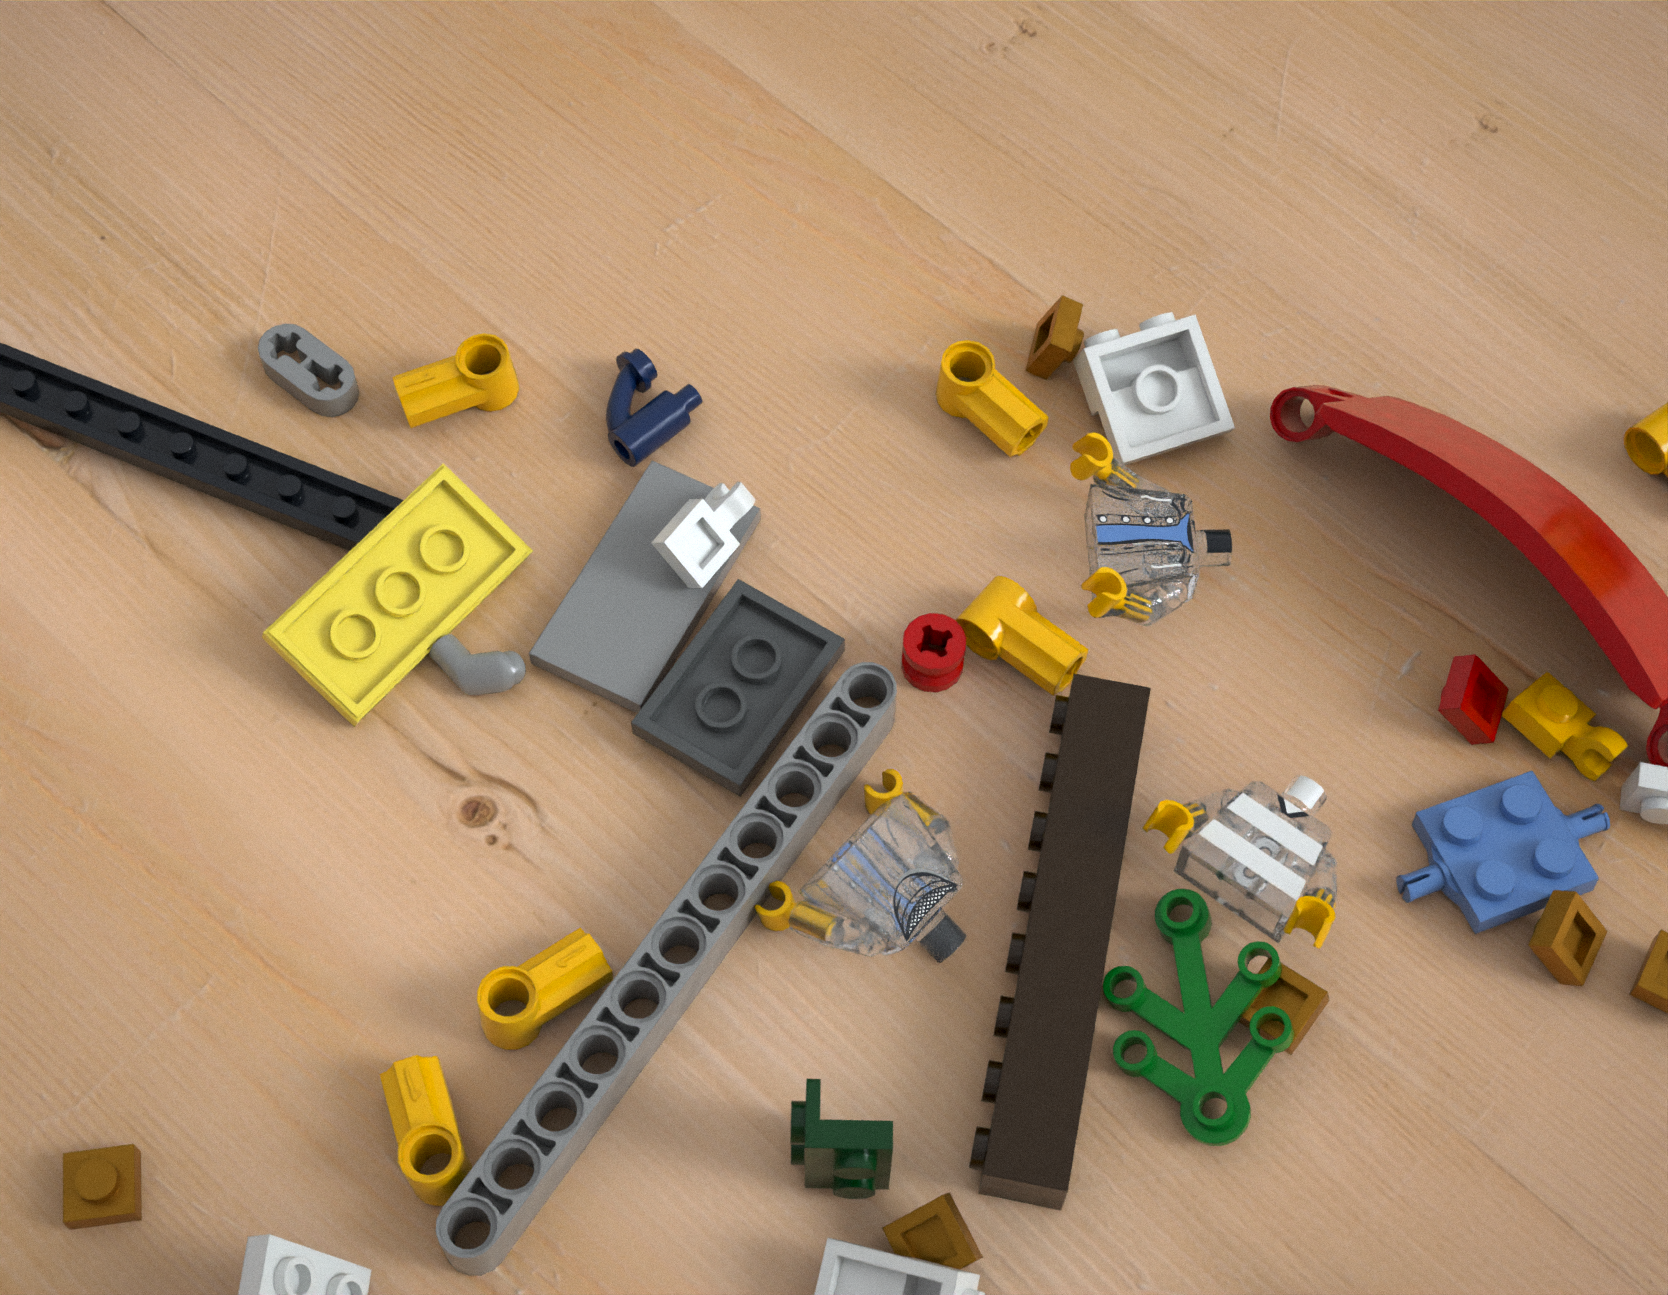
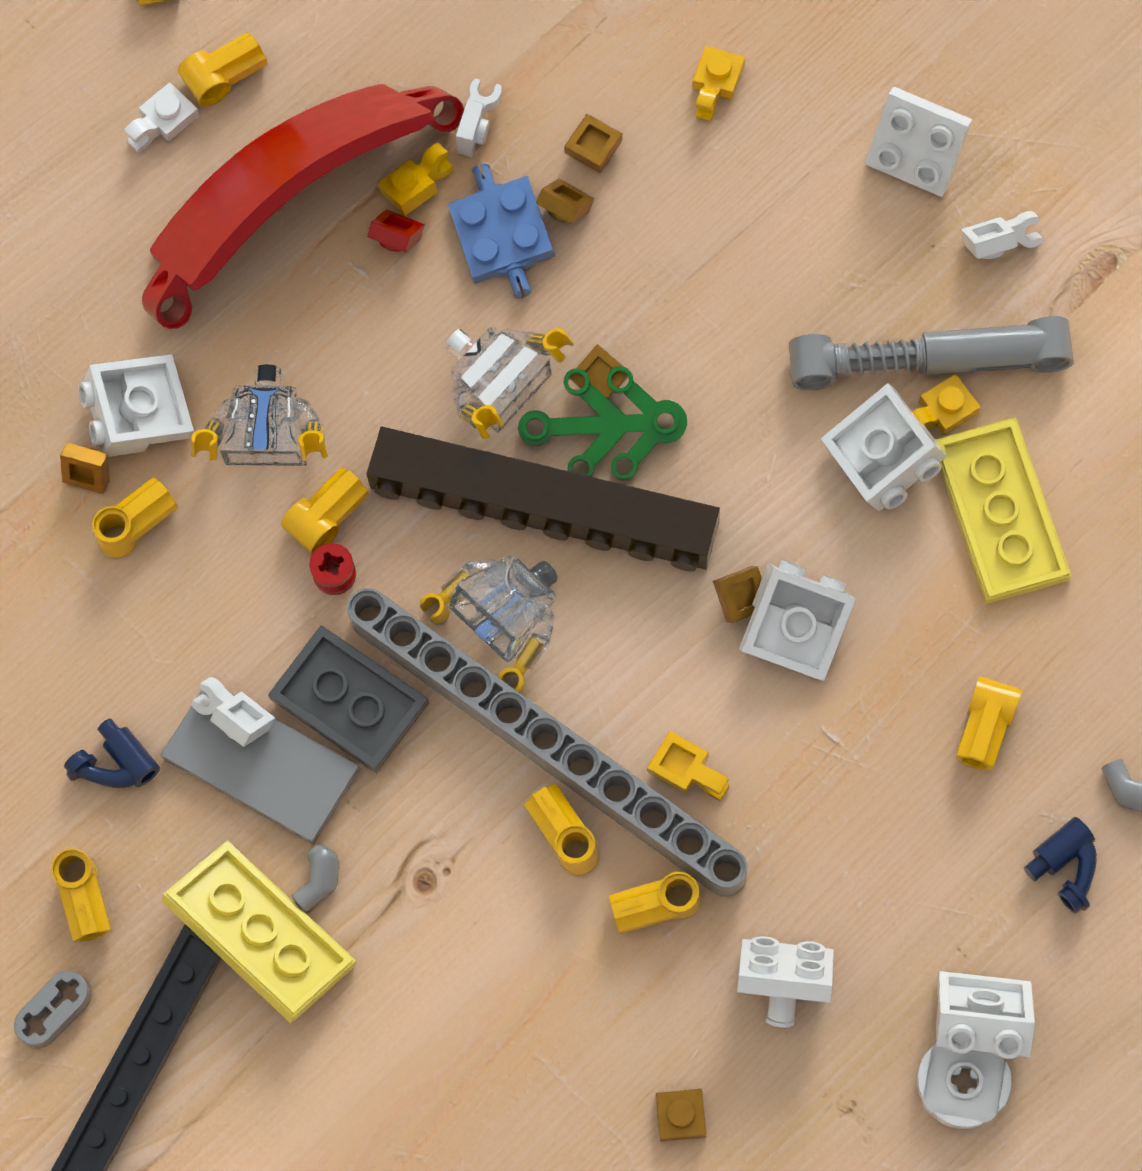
camera: 80 degrees left, 10 degrees up
(646, 1162) = (683, 764): none -> yellow plate
(840, 1154) = (681, 656): dark green bracket -> none
(1598, 397) = (164, 115): none -> white plate

